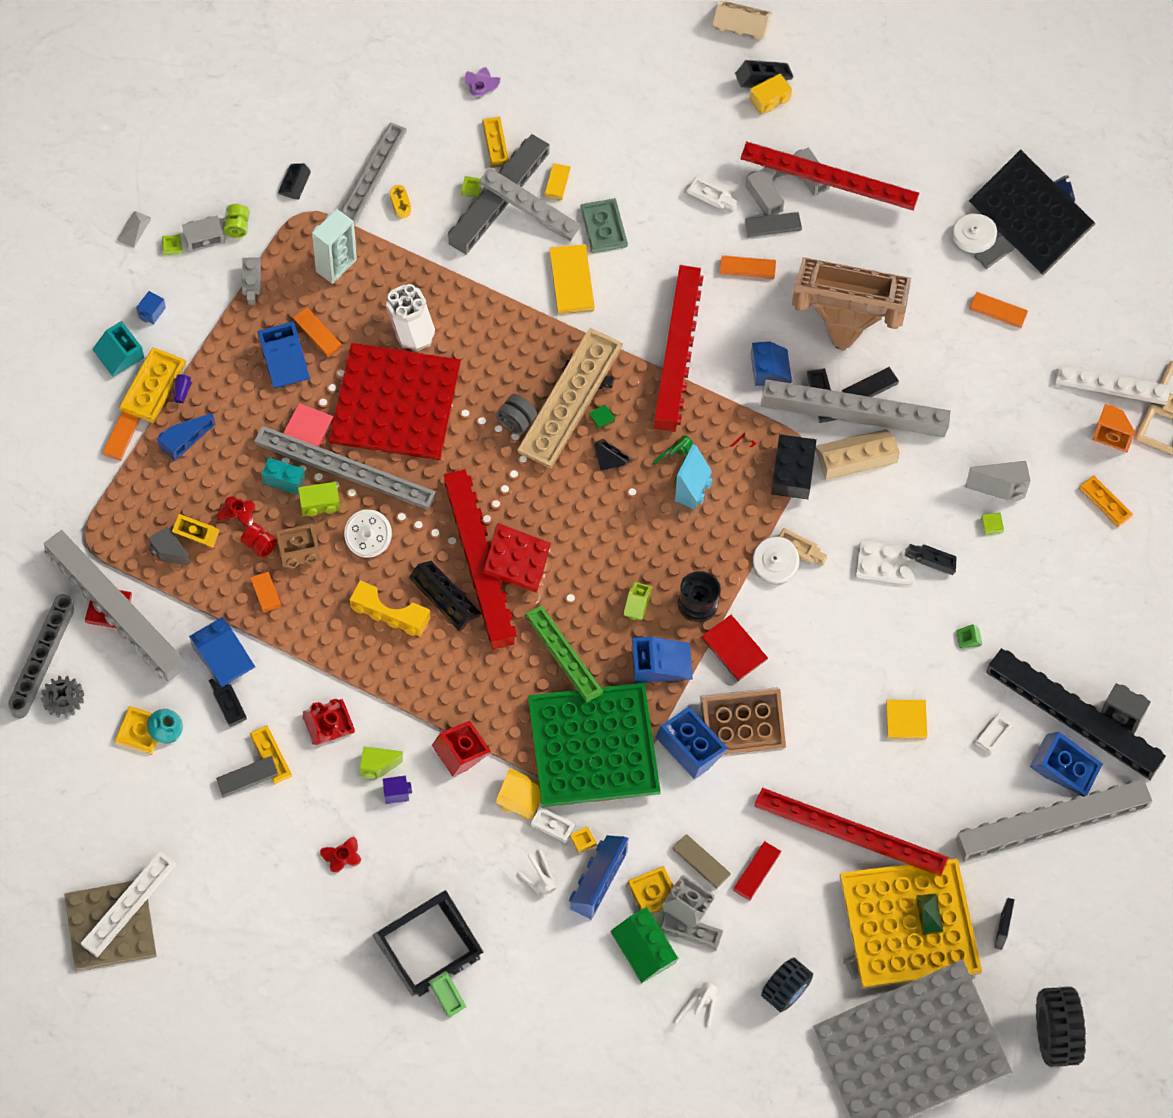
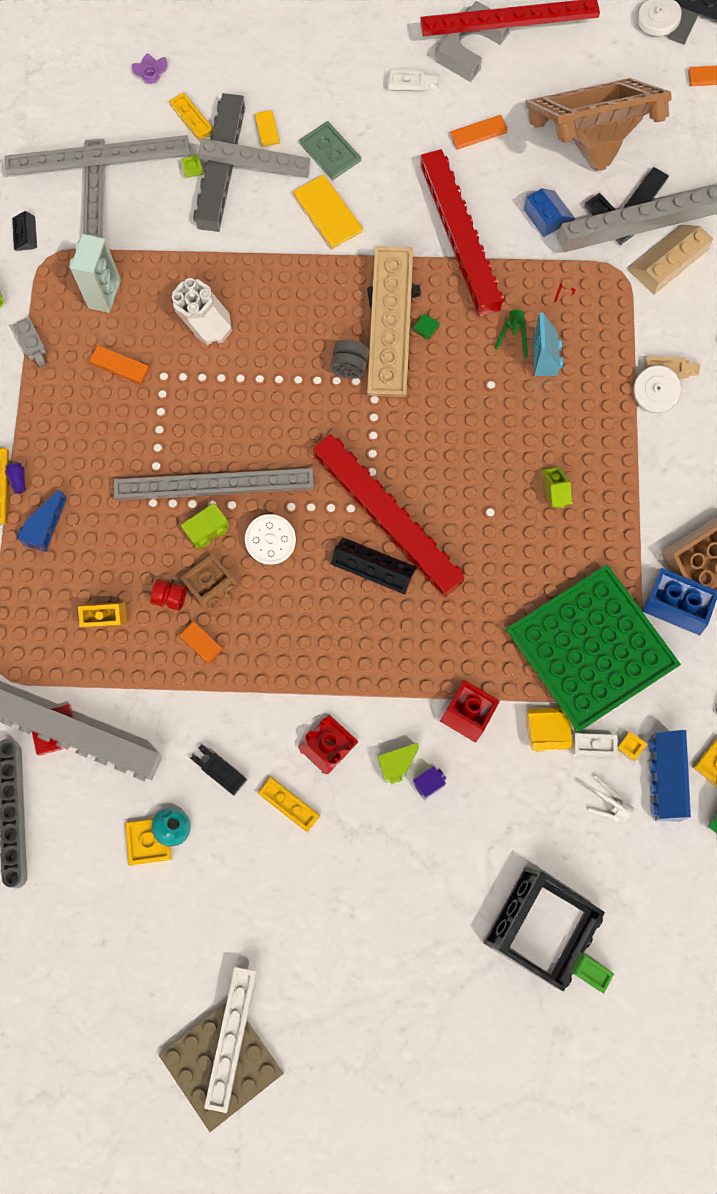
camera: 20 degrees left, 10 degrees up
(66, 702) = (53, 853): dark grey gear -> none
(168, 548) = (83, 643): dark grey slope -> none
(221, 651) = (189, 725): blue slope -> none
(238, 509) = (132, 572): red animal -> none
(247, 776) = (278, 839): dark grey tile -> none
(283, 355) = (99, 401): blue slope -> none
(283, 476) = (159, 519): teal brick -> none
(308, 425) = (157, 458): coral tile -> none
(342, 855) = (411, 875): red animal -> none
(392, 141) = (97, 155): none -> light grey plate
(395, 401) = (227, 398): red plate -> none
(403, 200) = (135, 206): yellow beam -> none
(411, 618) = (355, 605): yellow arch -> none
(516, 557) = (423, 498): red plate -> none
(563, 654) = (517, 571): bright green tile -> none
(610, 456) = (455, 360): black slope -> none
(660, 660) = (608, 535): blue slope -> none
(699, 596) = (613, 456): black wheel -> none
(734, 647) = (665, 490): red tile -> none
(773, 224) = (479, 84): dark grey tile -> none
(793, 466) = (626, 294): black brick -> none

